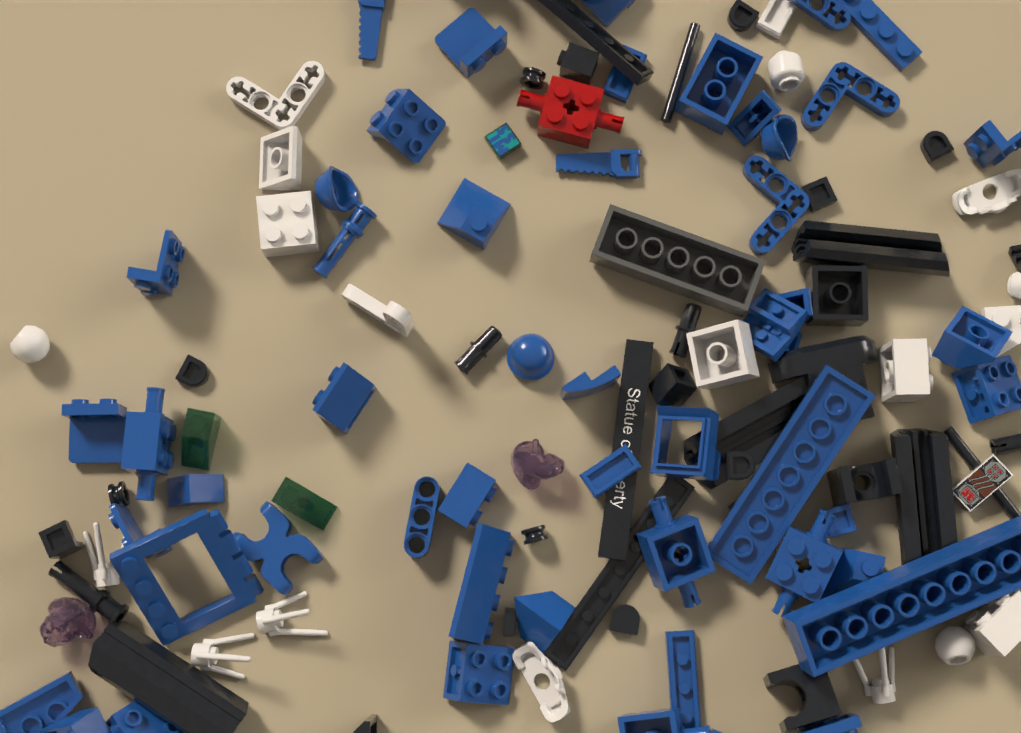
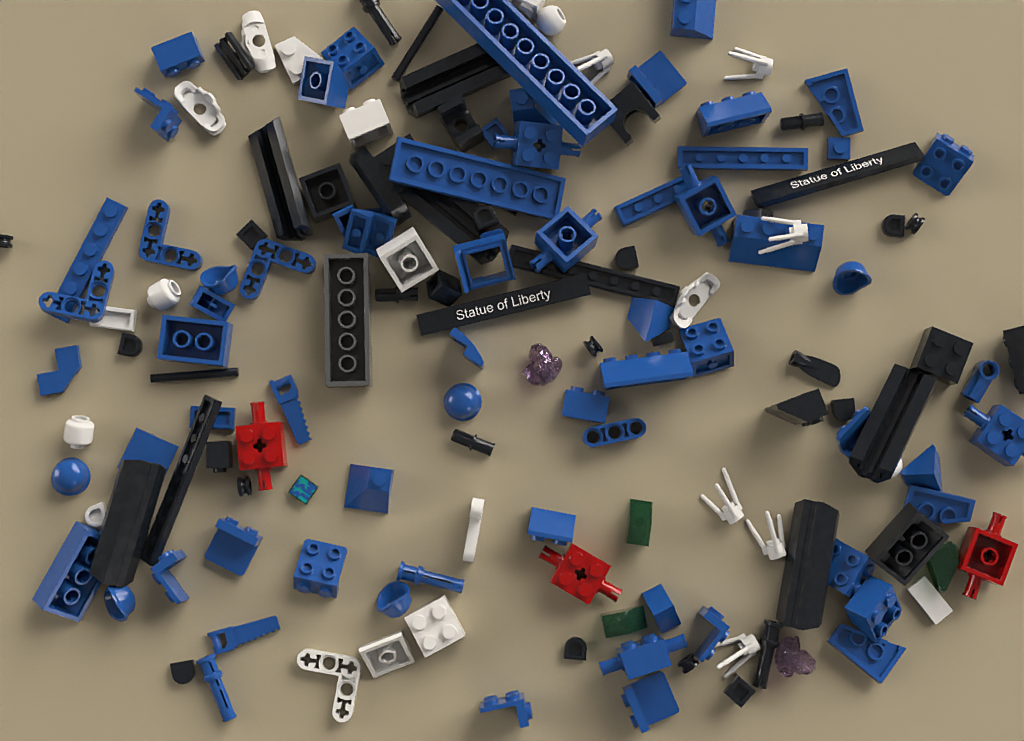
camera: 110 degrees left, 5 degrees up
(151, 598) = (752, 604): blue hinge -> none
(258, 405) = (581, 588): none -> red brick
(277, 548) = (679, 529): blue piece -> none
(610, 471) = (526, 308): blue tile -> none
(935, 145) = (178, 161): black tile -> none
(981, 482) = (425, 41): tile -> none

